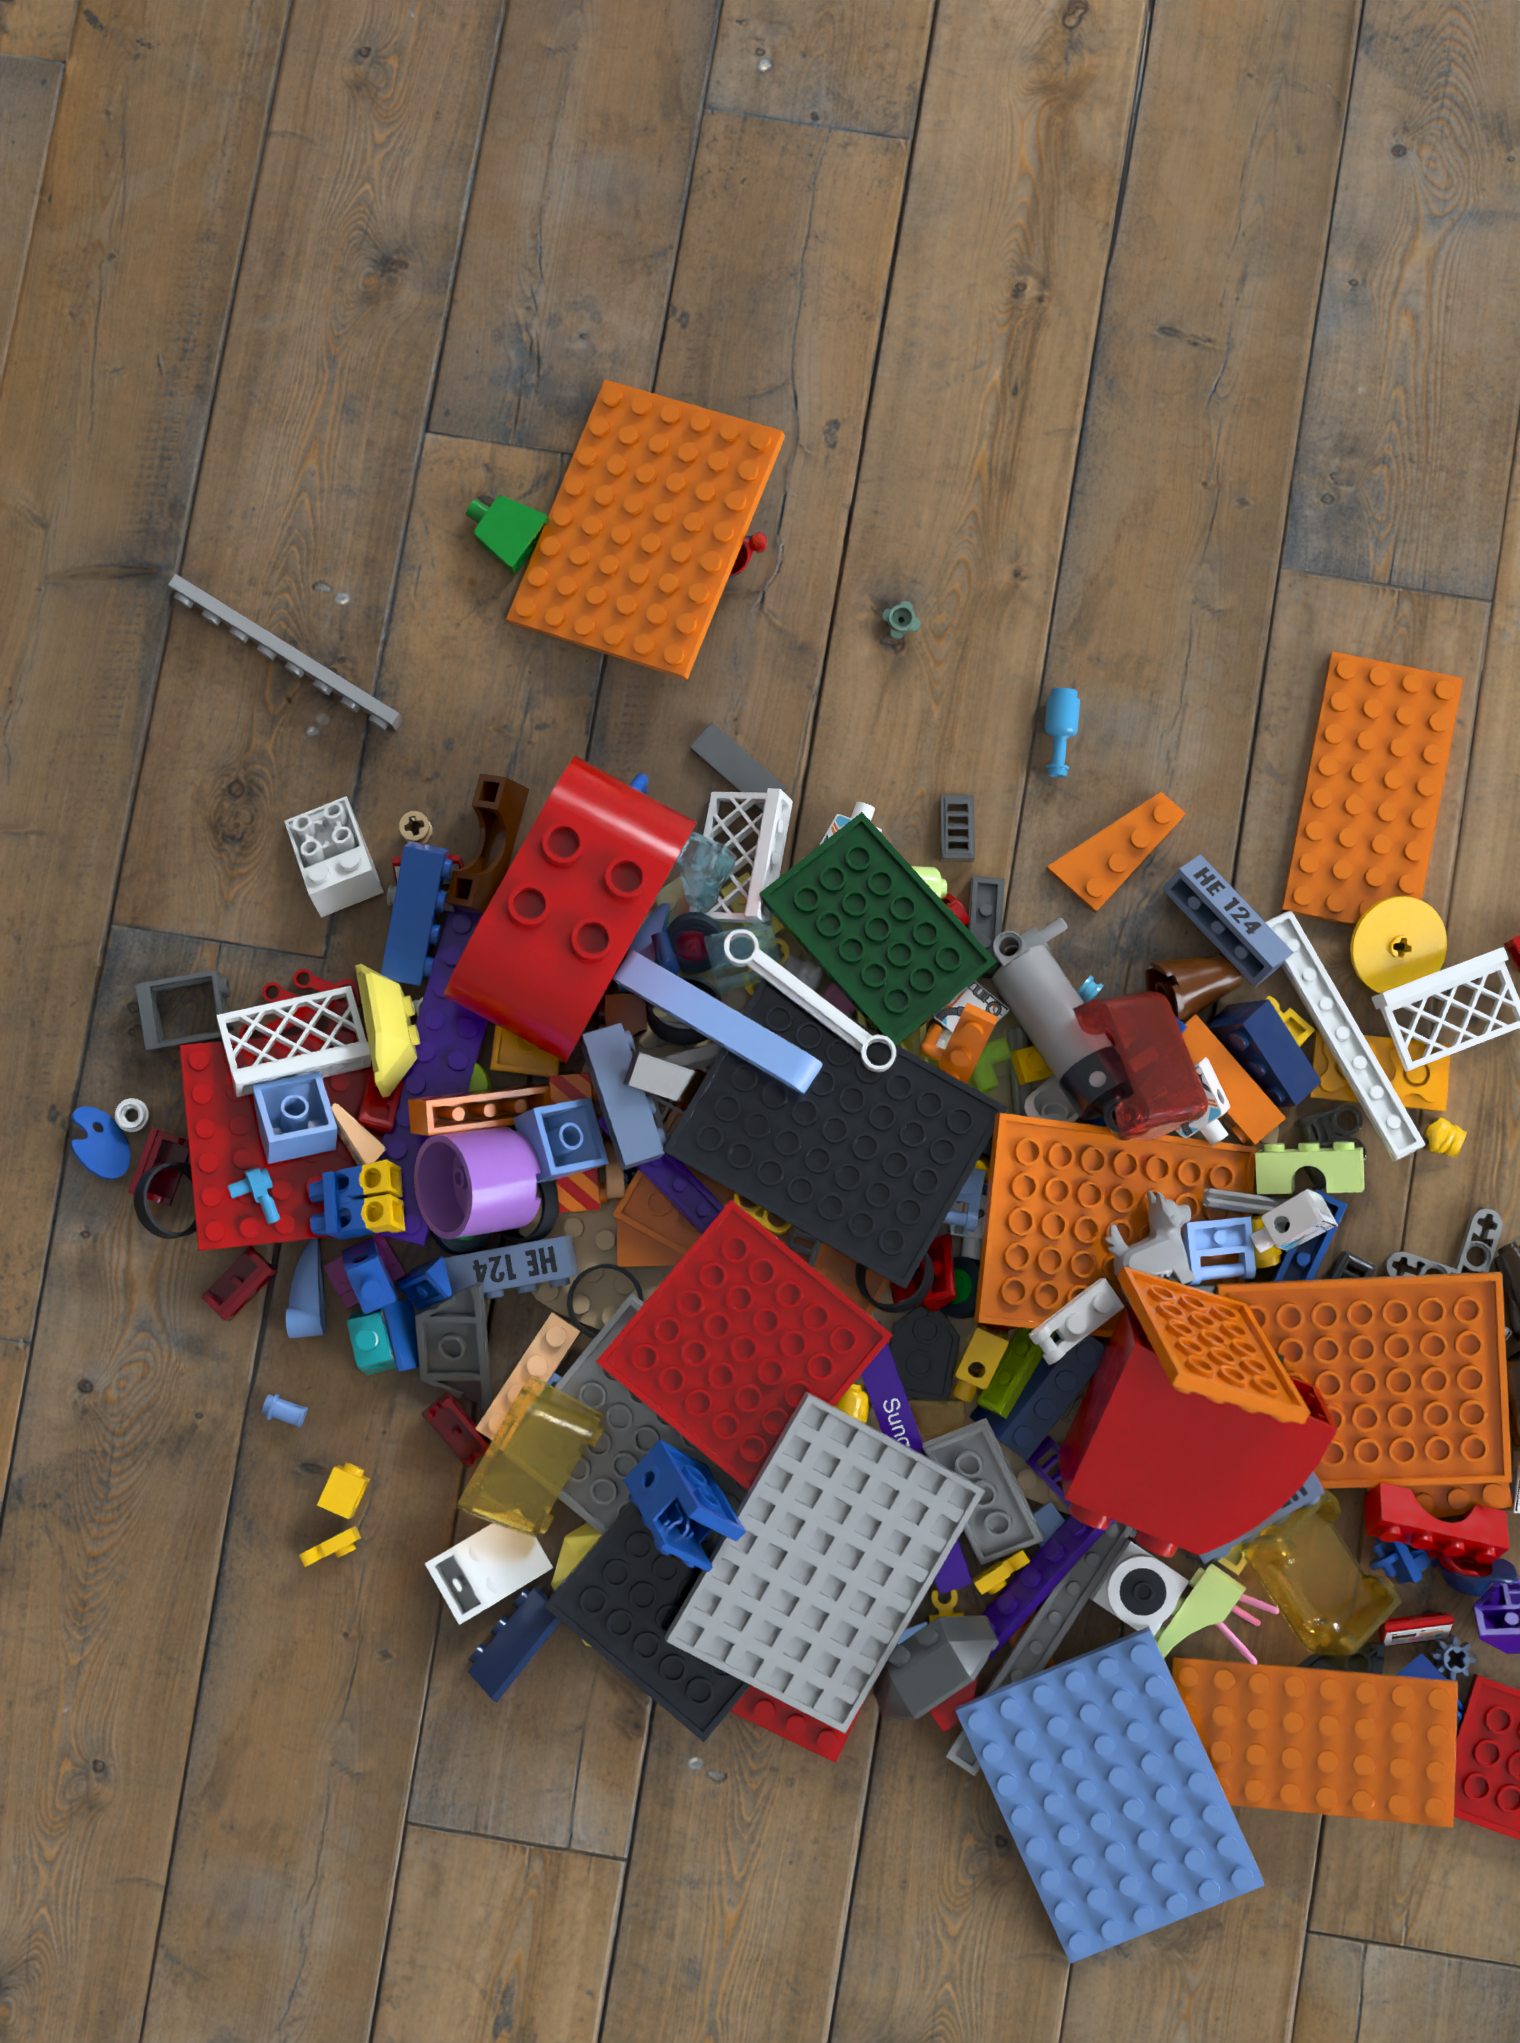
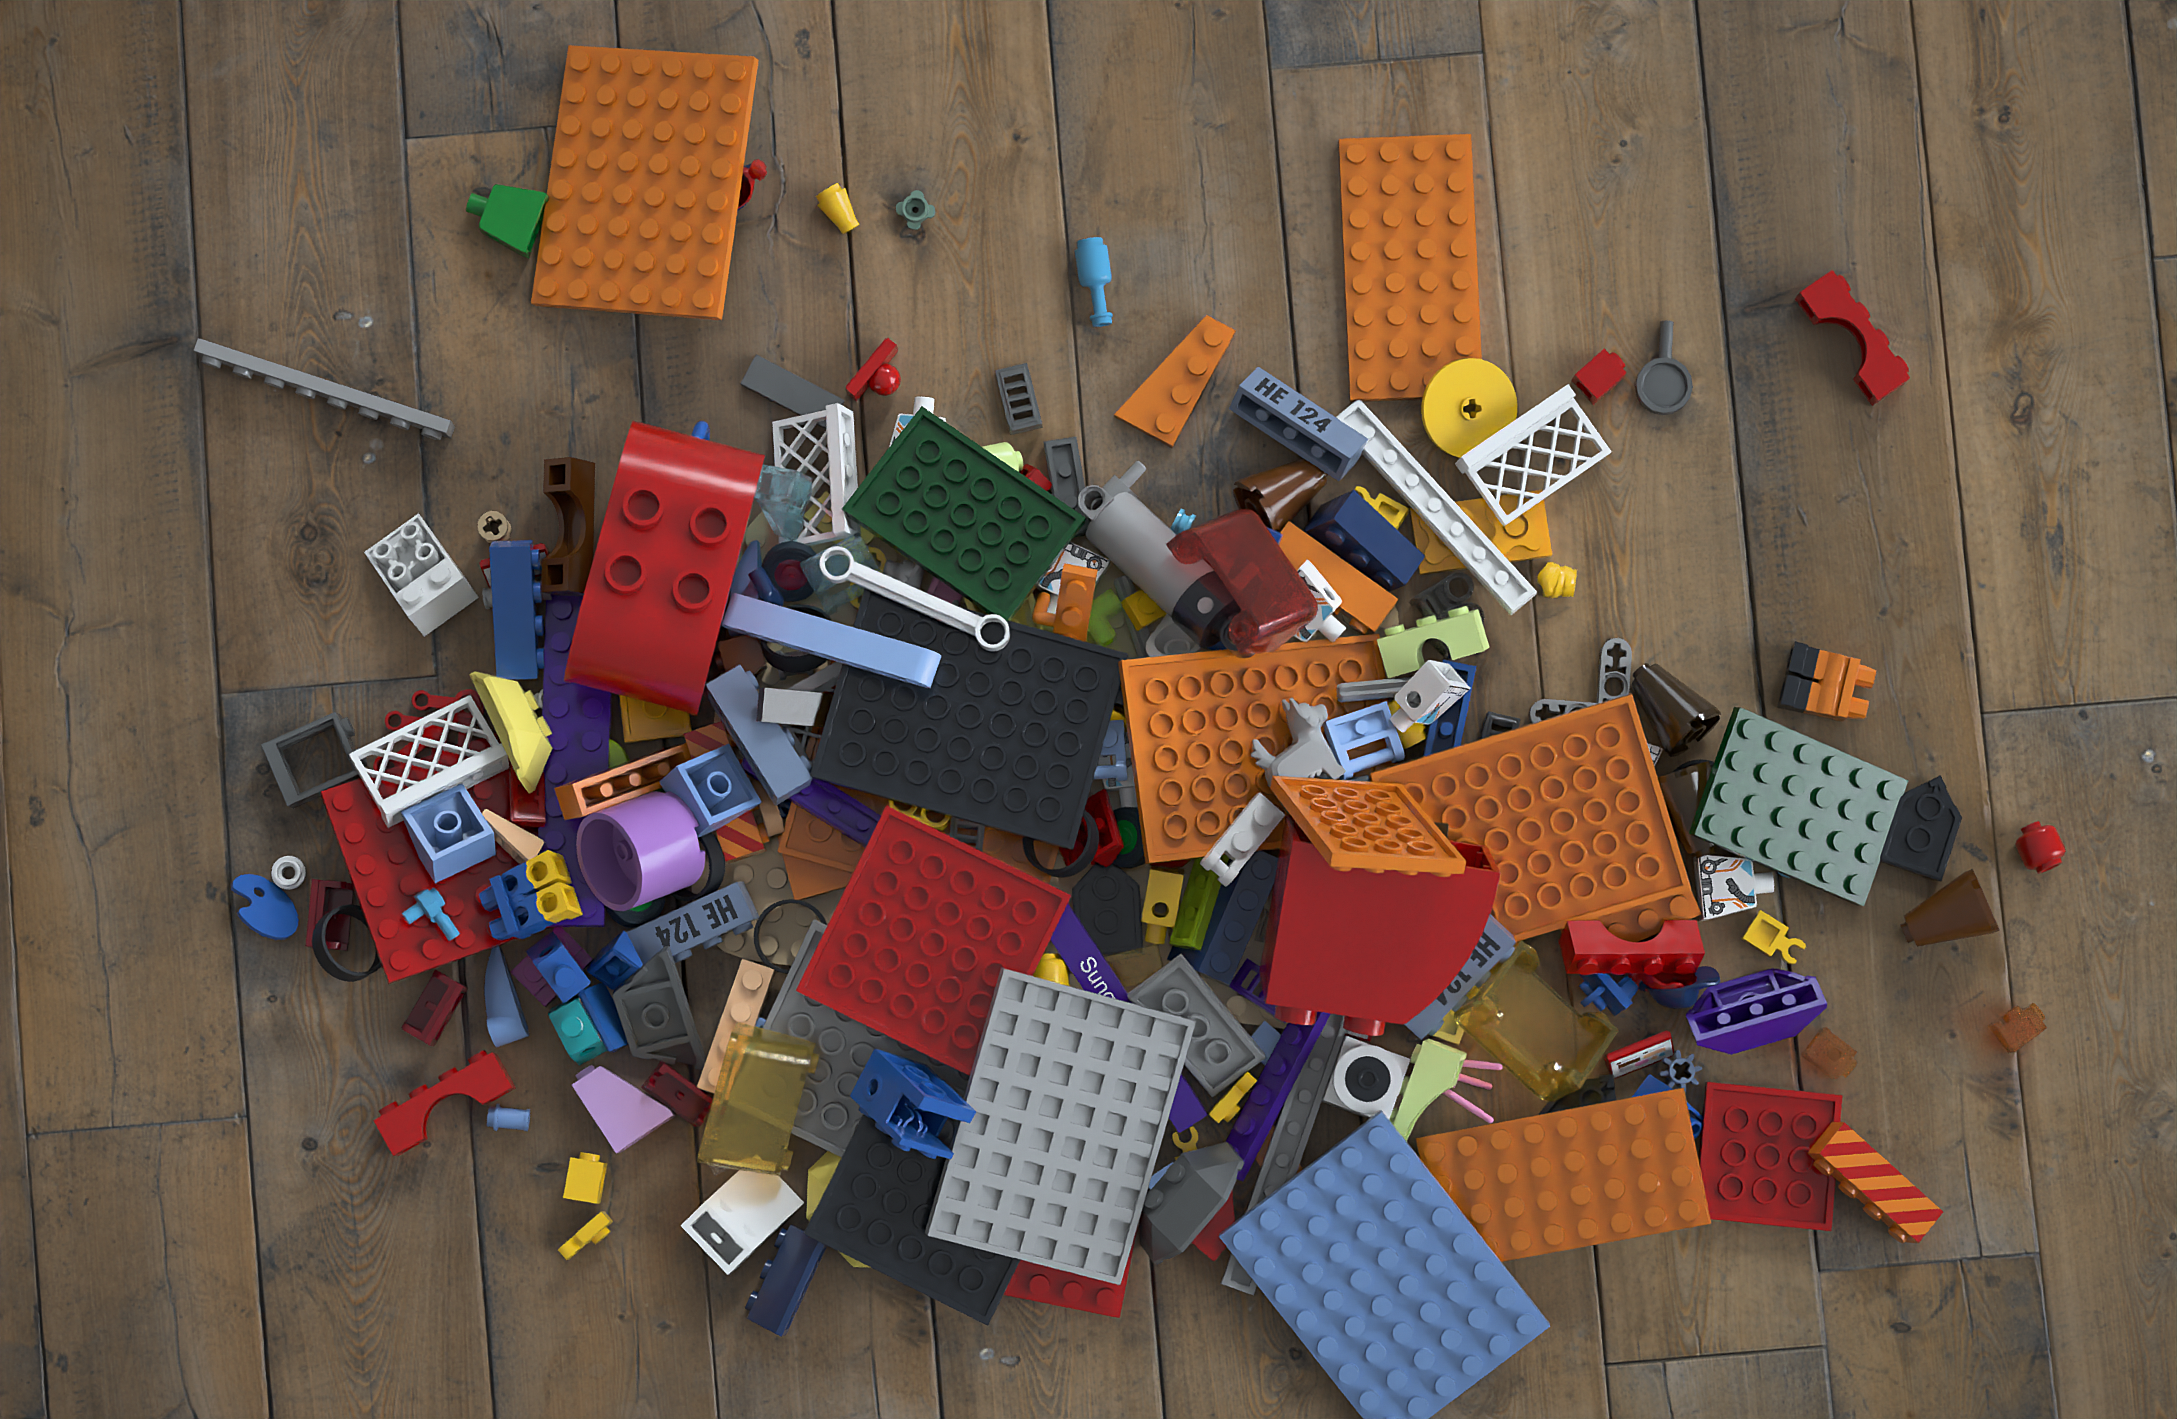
camera: 15 degrees left, 0 degrees up
(183, 1392) = (406, 1124): none -> red arch
(395, 1427) = (619, 1107): none -> lavender slope
(825, 769) = (876, 373): none -> red tile
(826, 598) = (837, 207): none -> yellow cone

